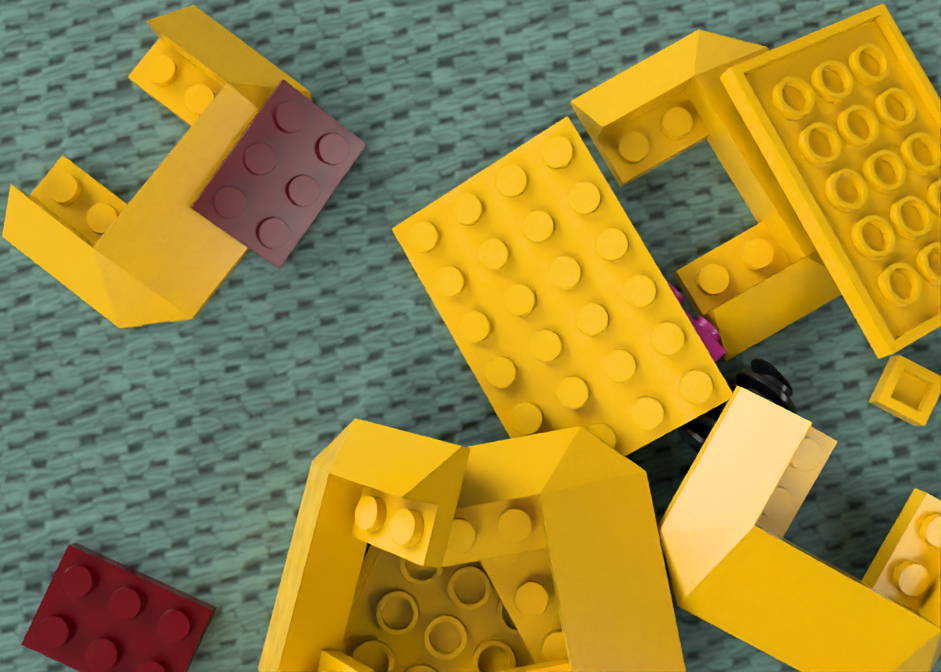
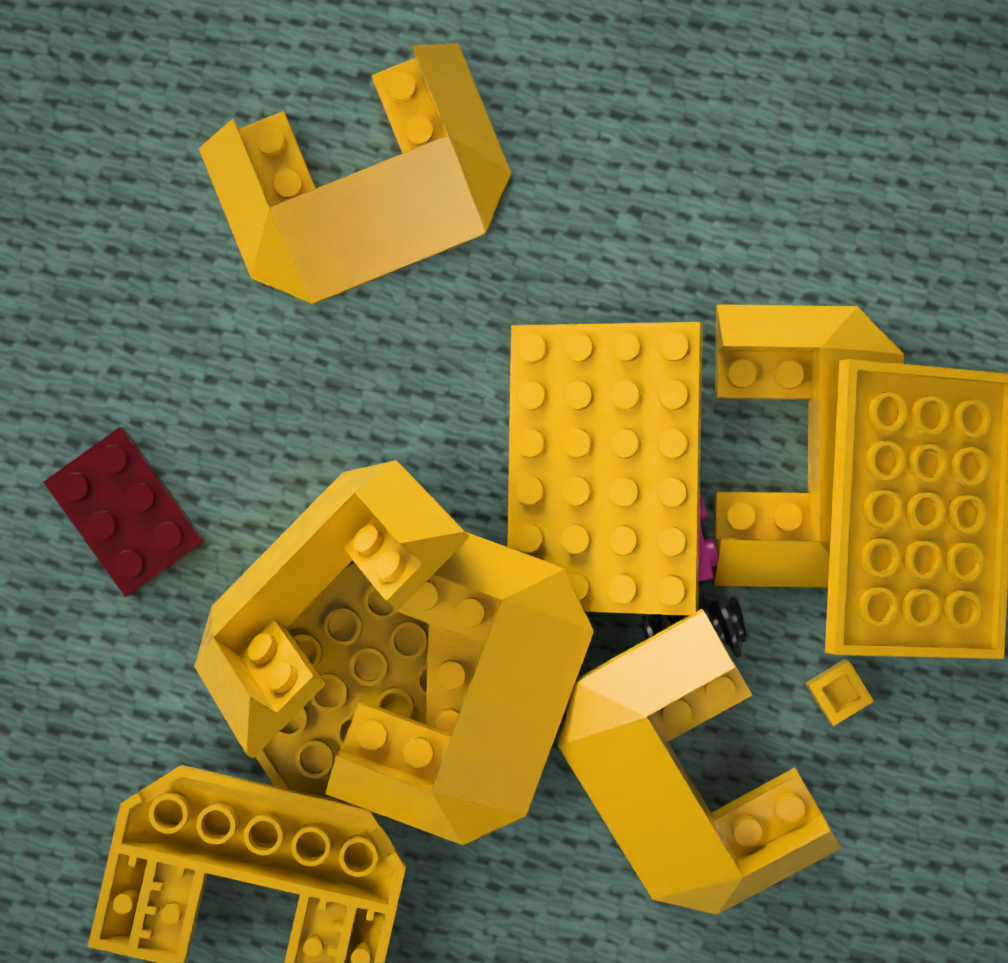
camera: 30 degrees right, 5 degrees up
(278, 174) = (447, 230): dark red plate -> none

